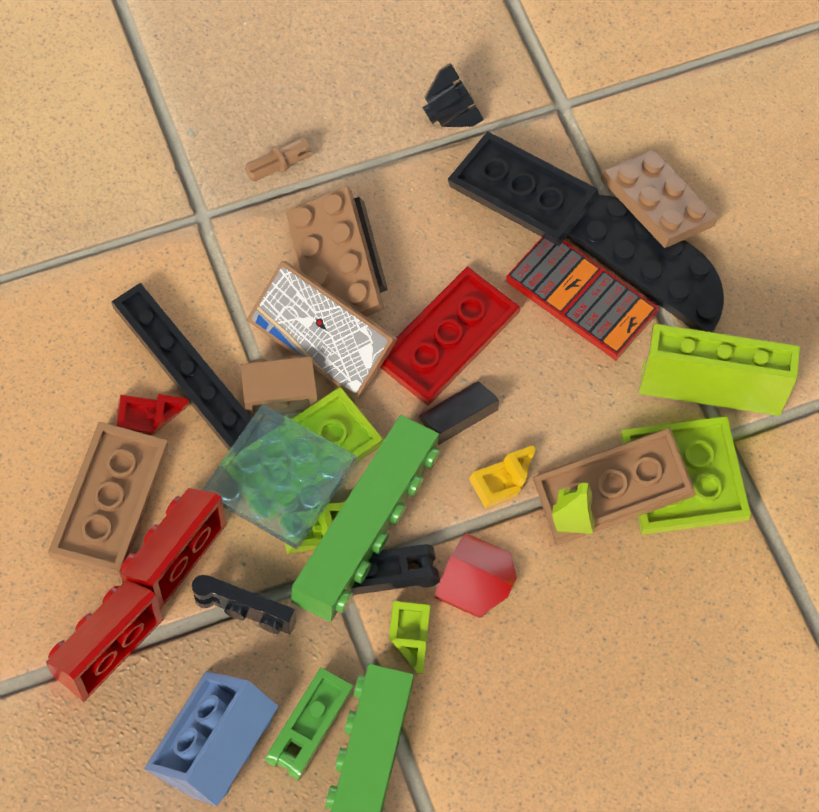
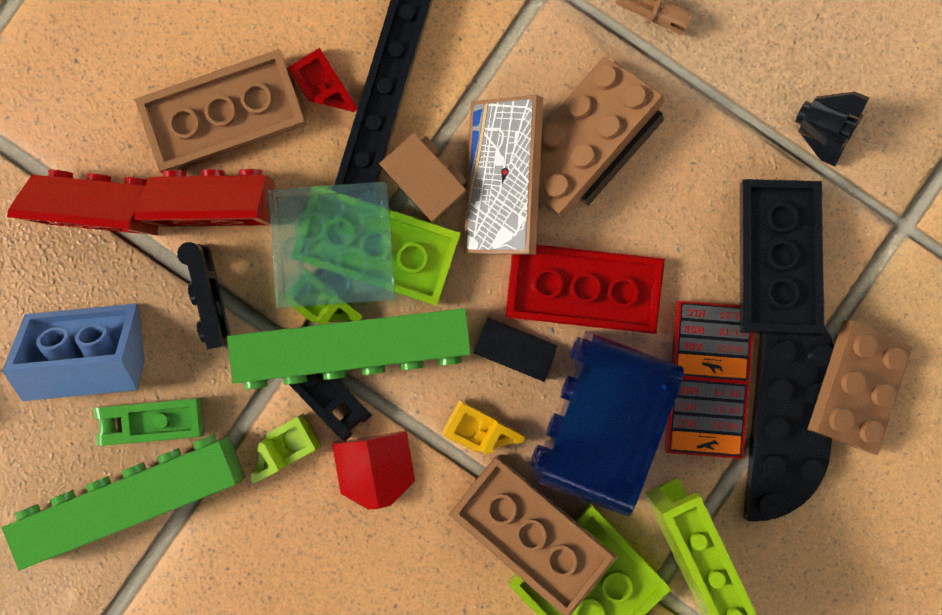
camera: 65 degrees right, 25 degrees up
(564, 373) = (607, 423): none -> clear blue windscreen
(574, 510) = (475, 525): lime slope -> none

